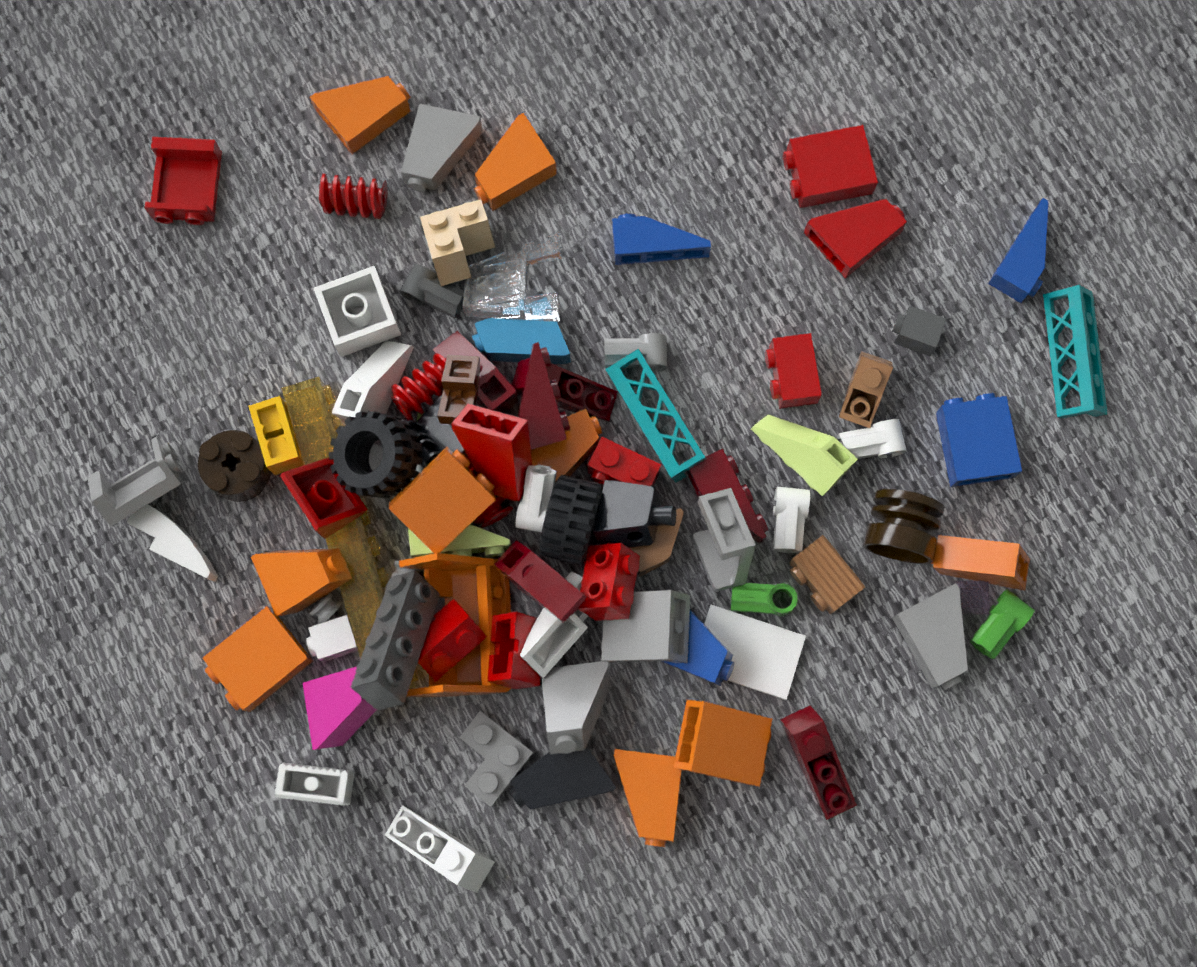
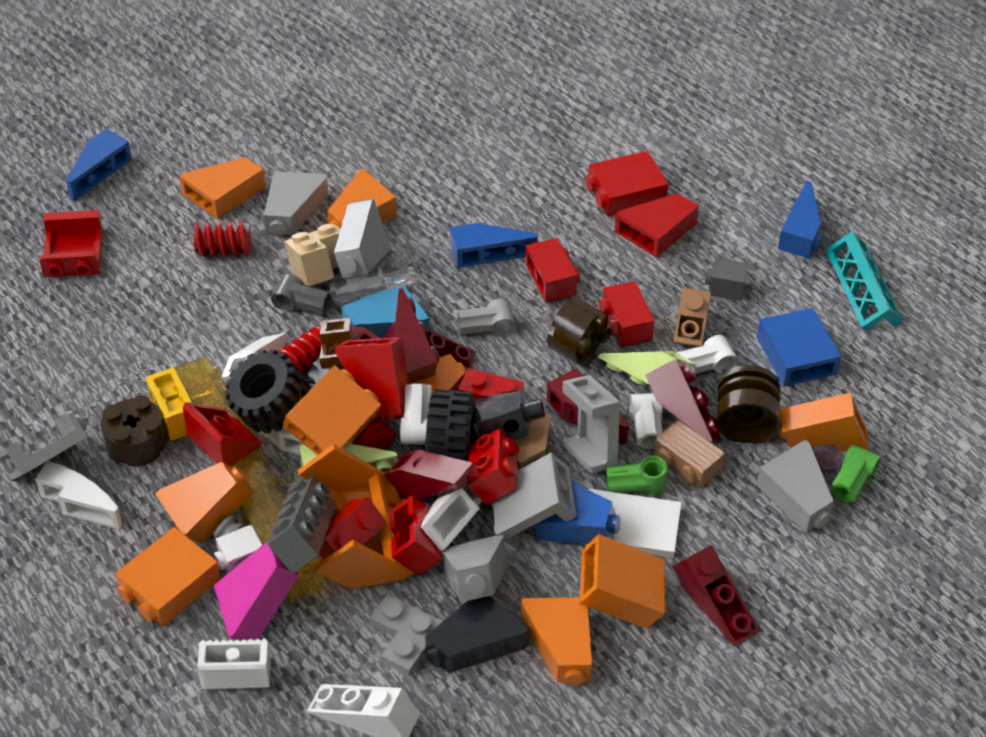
camera: 10 degrees left, 30 degrees down
(221, 51) = (98, 160): none -> blue slope
(357, 311) = (236, 311): white brick -> none
(506, 232) = (361, 239): none -> light grey slope
(649, 426) = (506, 363): teal fence -> none
(720, 293) = (552, 269): none -> red brick
(734, 395) = (579, 331): none -> dark brown brick
(830, 512) = (678, 393): none -> slope

